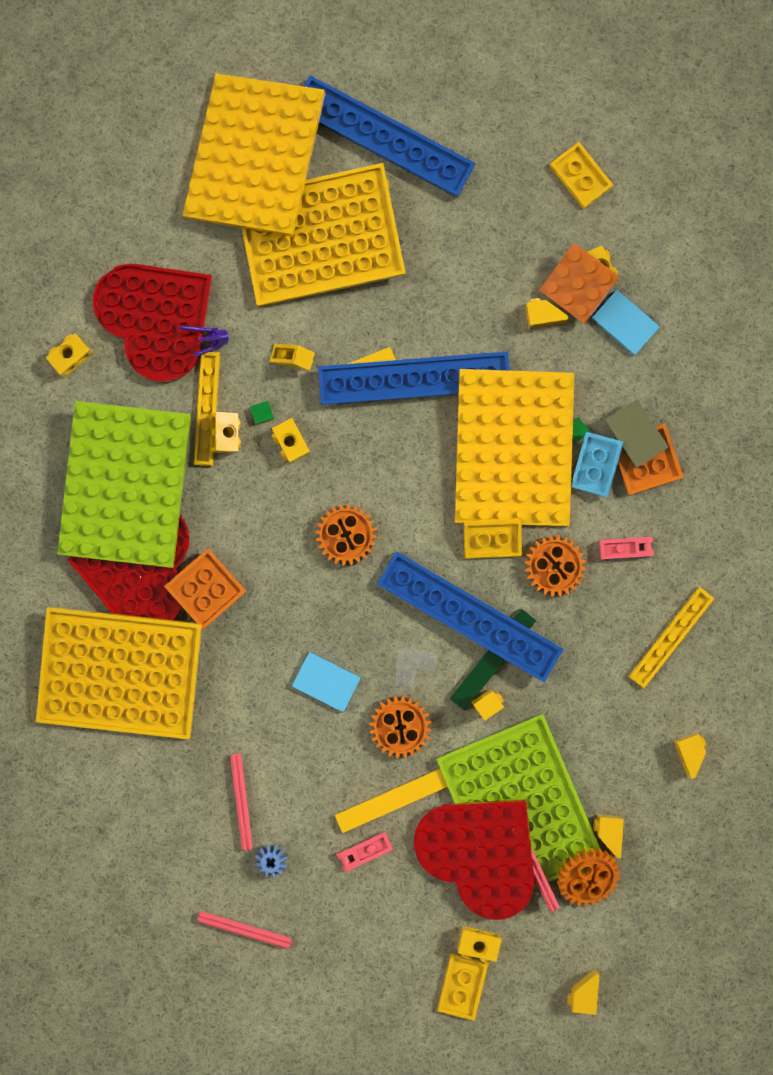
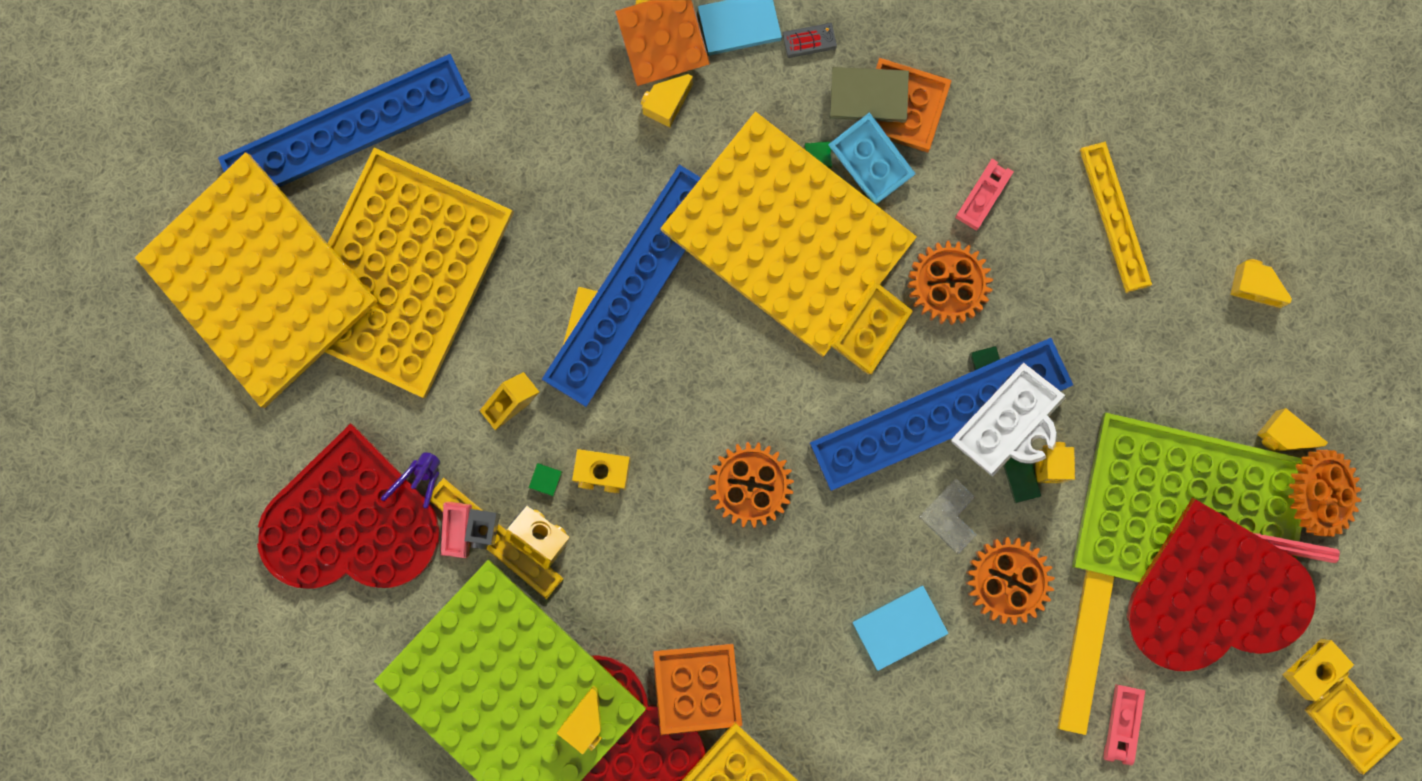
camera: 50 degrees left, 5 degrees down
(64, 365) = (326, 663): yellow brick -> none
(138, 538) = (584, 723): none -> yellow slope
(195, 382) = (454, 530): none -> coral tile
(207, 390) = (477, 519): none -> dark grey brick
(493, 660) = (1012, 422): none -> white plate
(646, 373) = (809, 40): none -> tile

